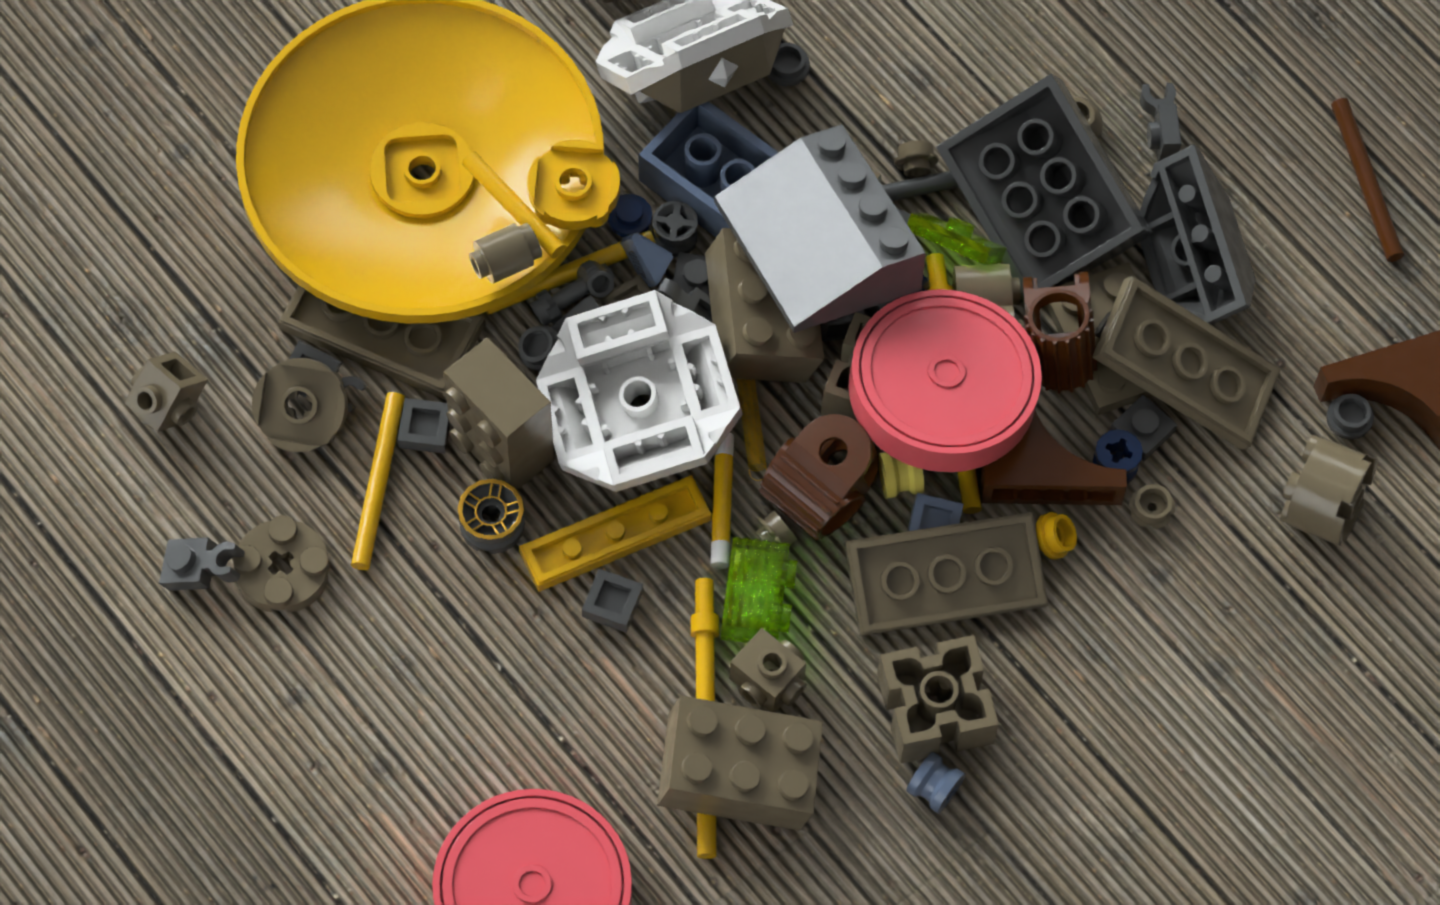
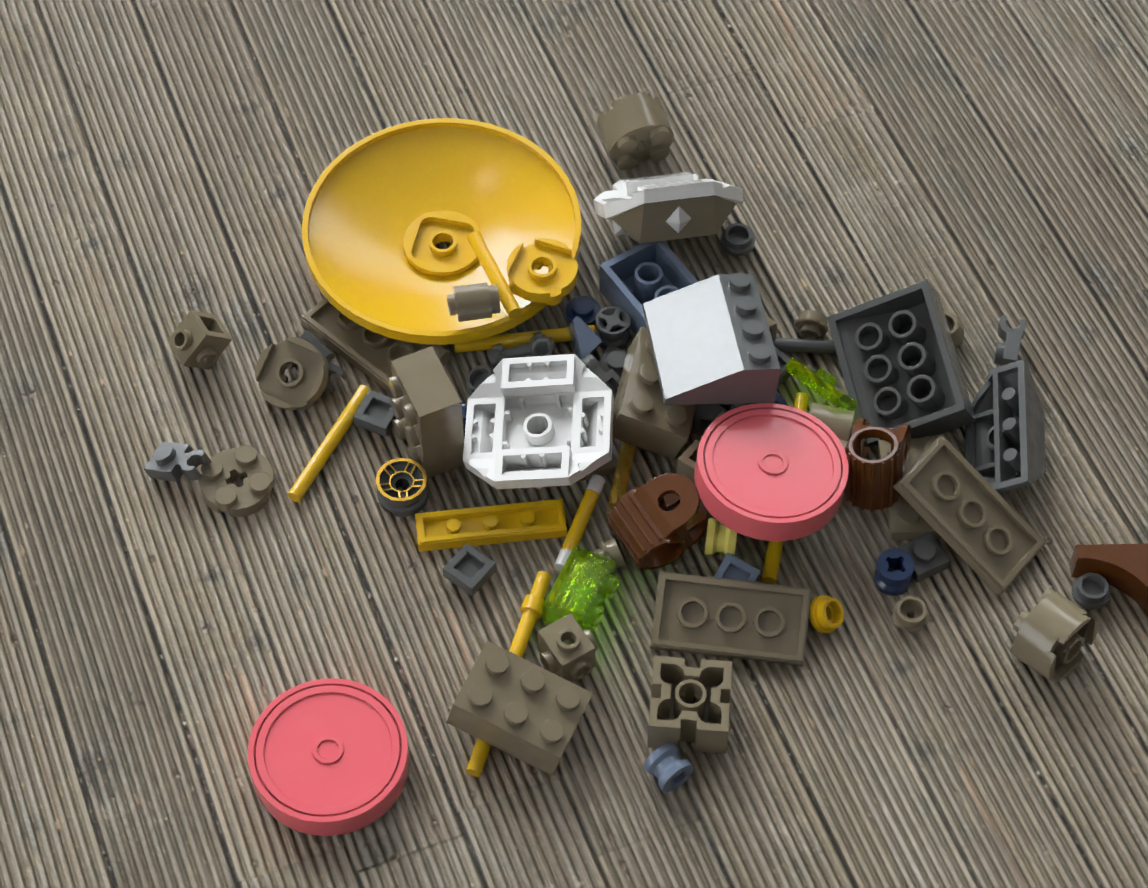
camera: 20 degrees right, 10 degrees down
(1047, 473) = (830, 565): reddish brown arch -> none

